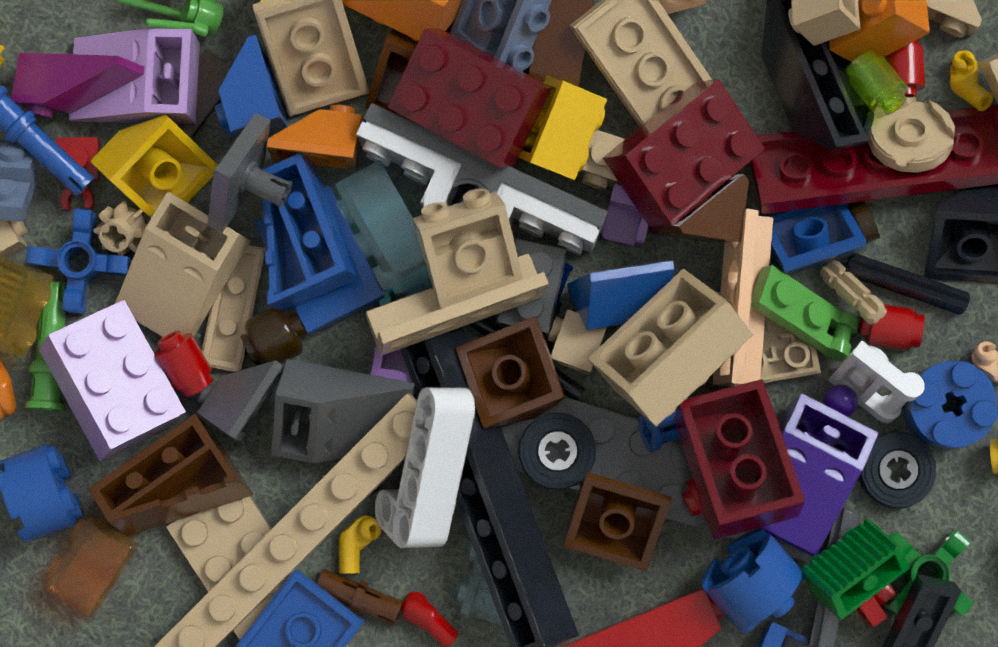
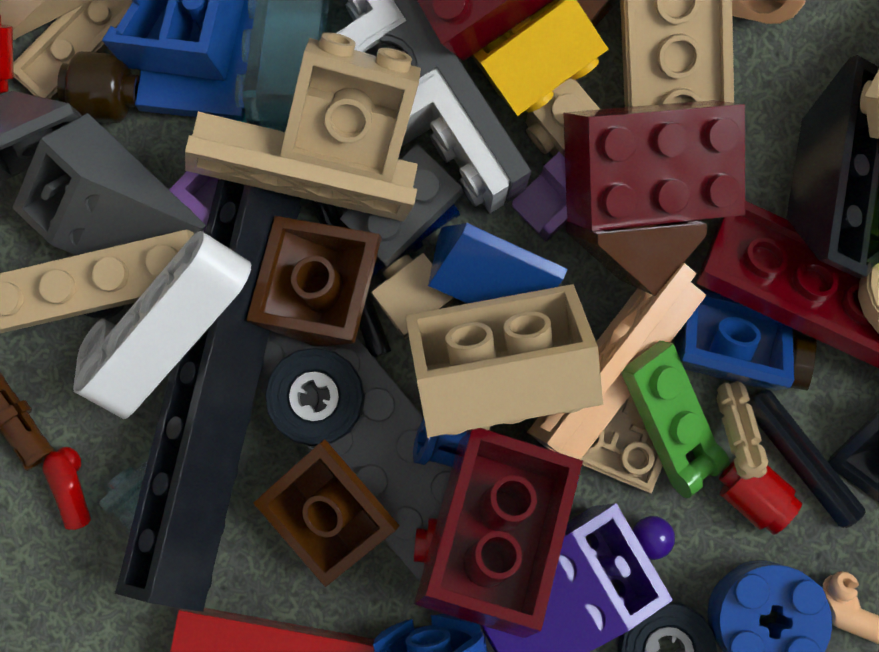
camera: 25 degrees right, 0 degrees up
(353, 540) = (44, 353): yellow arm -> none
(867, 371) = (707, 525): white plate -> none

